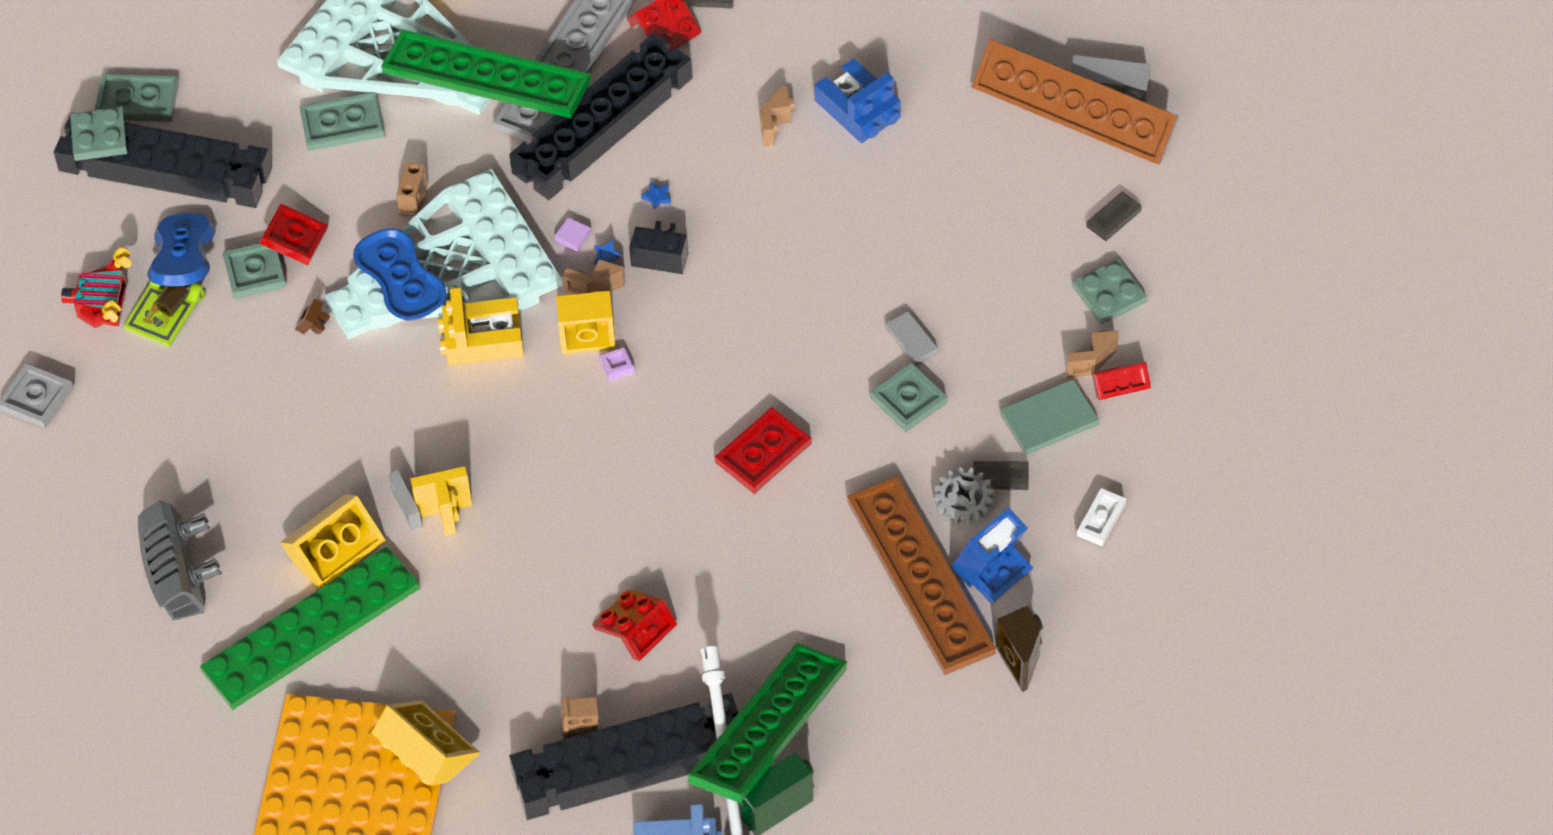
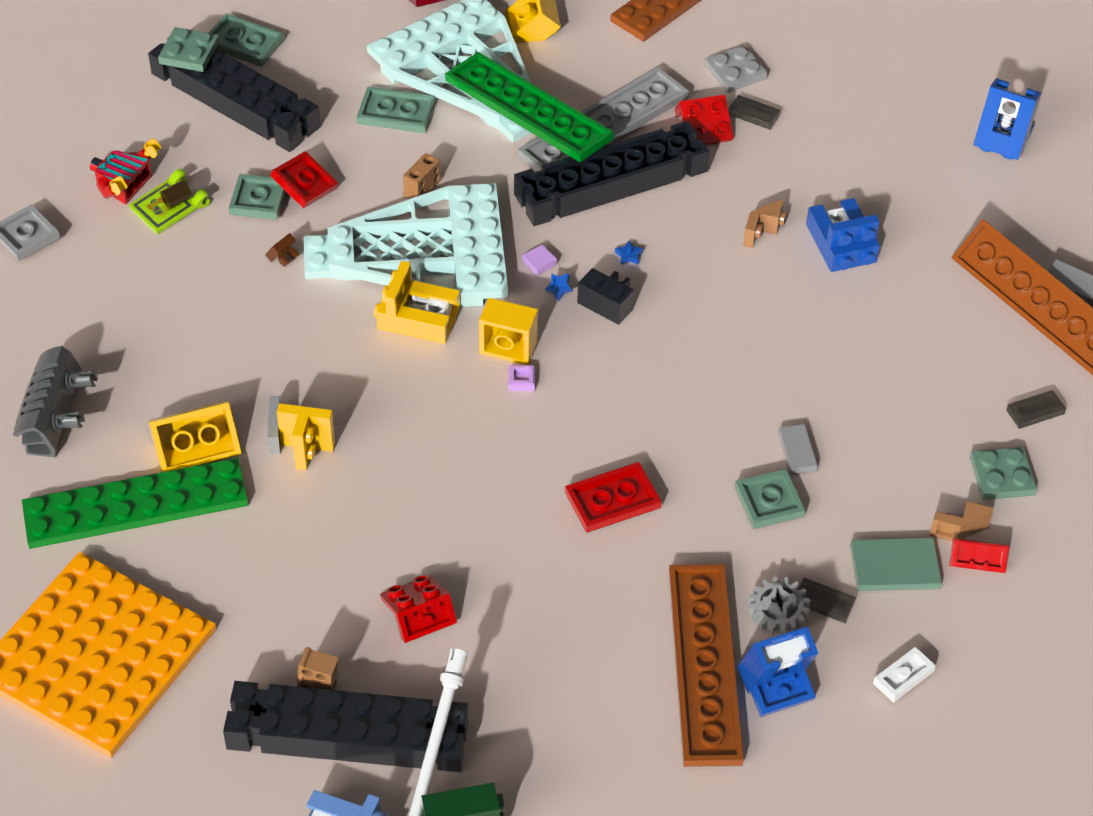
camera: 20 degrees right, 5 degrees down
(181, 250) = (206, 160): blue plate -> none
(406, 285) = (370, 246): blue plate -> none
(424, 741) = (167, 639): yellow slope -> none
(605, 277) = (547, 300): medium nougat slope -> none
(767, 723) = (482, 745): green plate -> none
(1019, 644) = (768, 764): dark brown slope -> none

